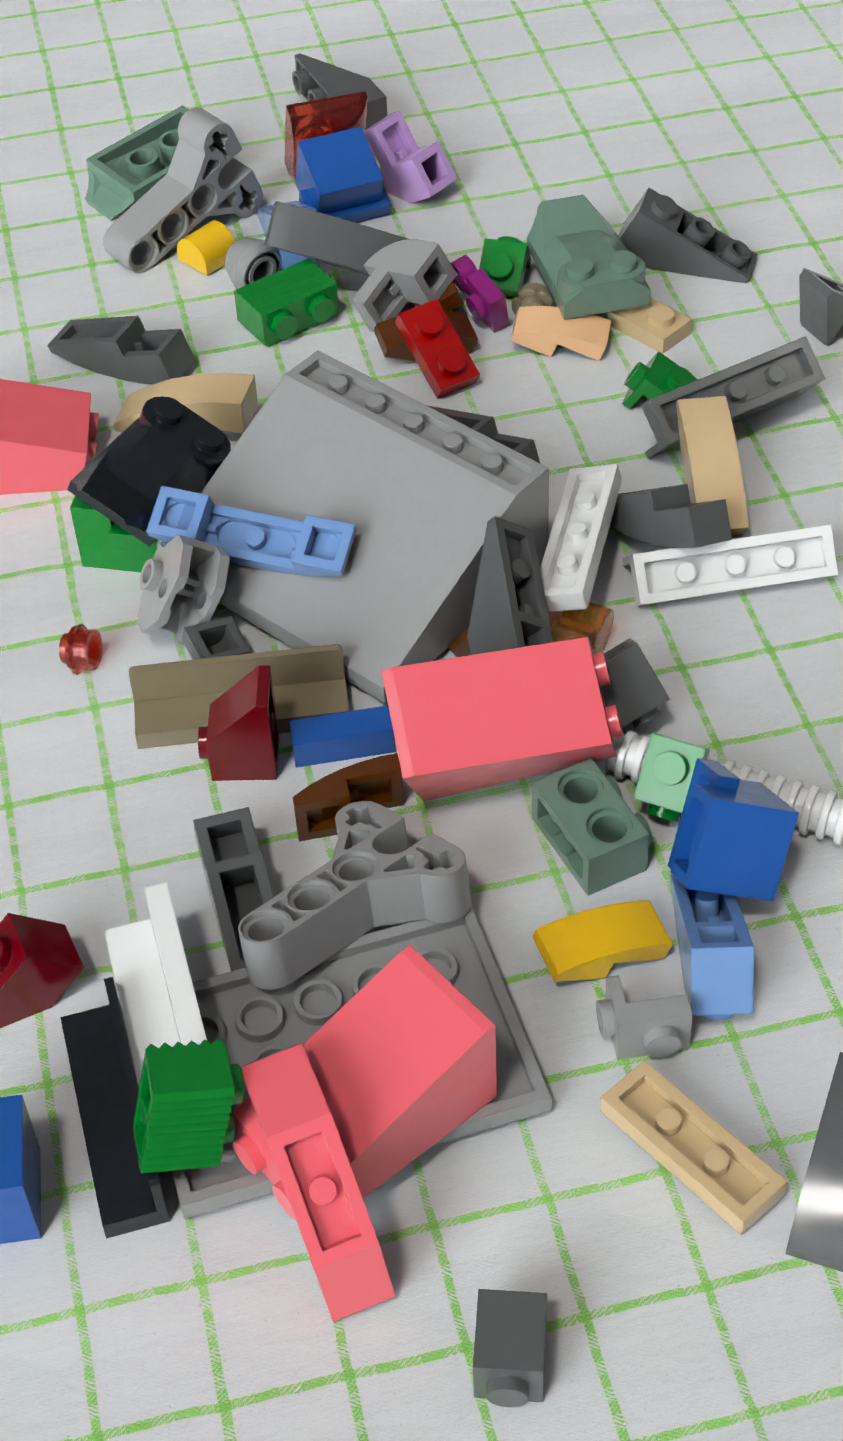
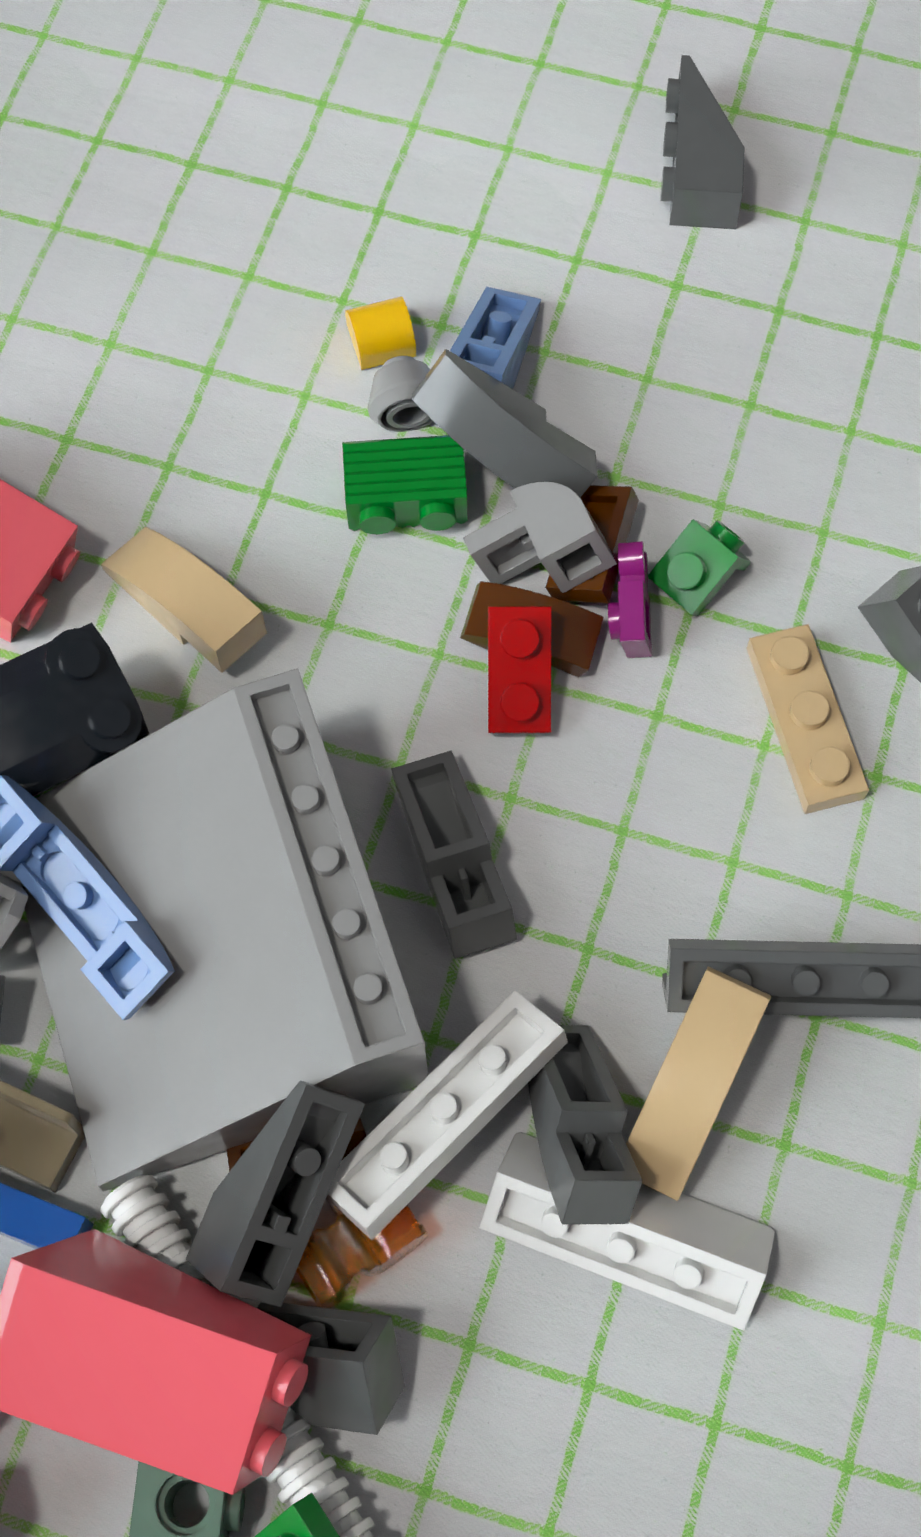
camera: 30 degrees right, 20 degrees up
(123, 349) = (178, 455): dark grey slope -> none
(132, 165) = (410, 151): sand green slope -> none
(198, 184) = (415, 236): light grey beam -> none
(321, 118) = (620, 227): clear red slope -> none
(341, 176) = (592, 314): blue plate -> none
(408, 170) = (695, 322): lavender brick -> none
(532, 295) = (693, 650): dark tan plate -> none
(545, 328) = (698, 712): light nougat slope -> none
(585, 260) = (792, 625): sand green slope -> none
(655, 379) = (750, 887): green bracket -> none

